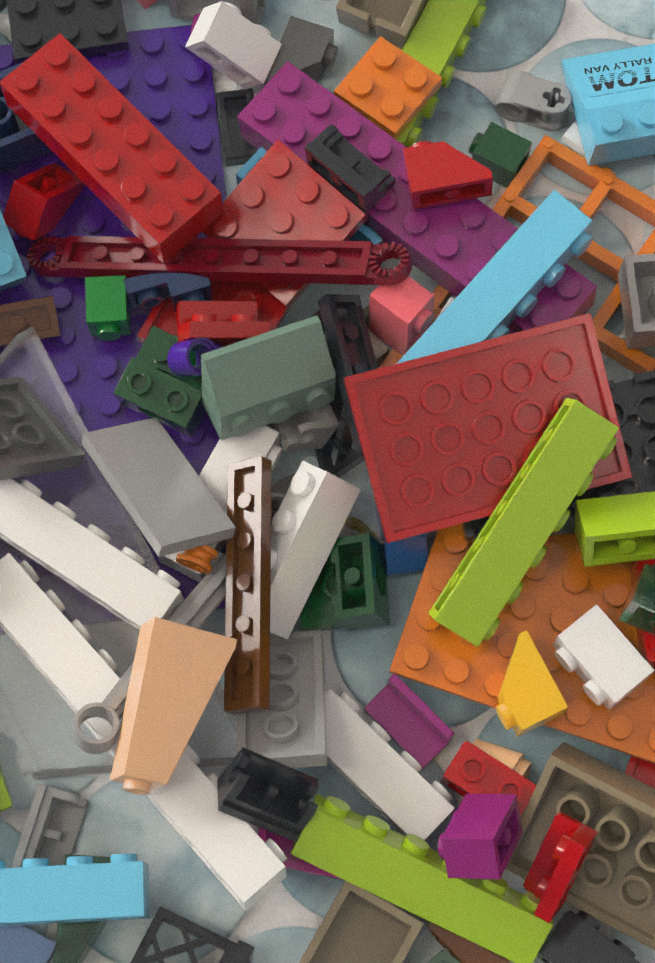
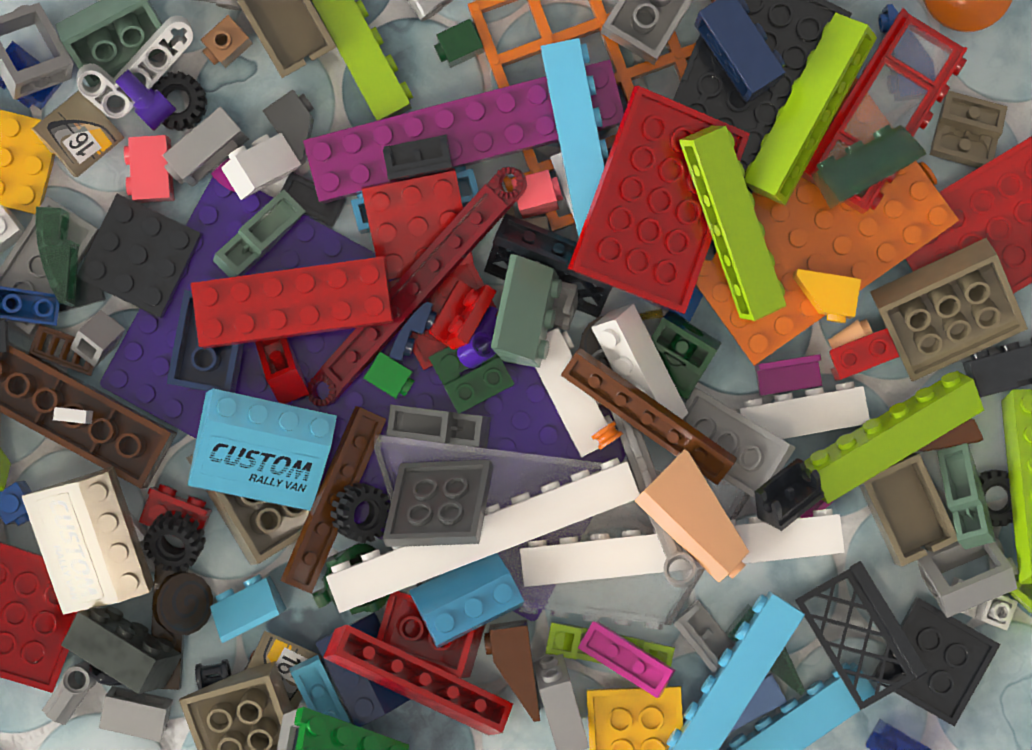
camera: 55 degrees left, 15 degrees up
(85, 382) = (438, 426): none -> dark grey slope
(158, 486) = (544, 428): light grey tile -> none
(168, 93) = (258, 235): none -> sand green slope
(388, 87) = (364, 85): orange plate -> none
(443, 175) = (467, 104): red slope -> none
(481, 836) = (896, 385): magenta brick -> none
(558, 864) = (942, 350): red bracket -> none
(601, 658) = (843, 234): white brick -> none

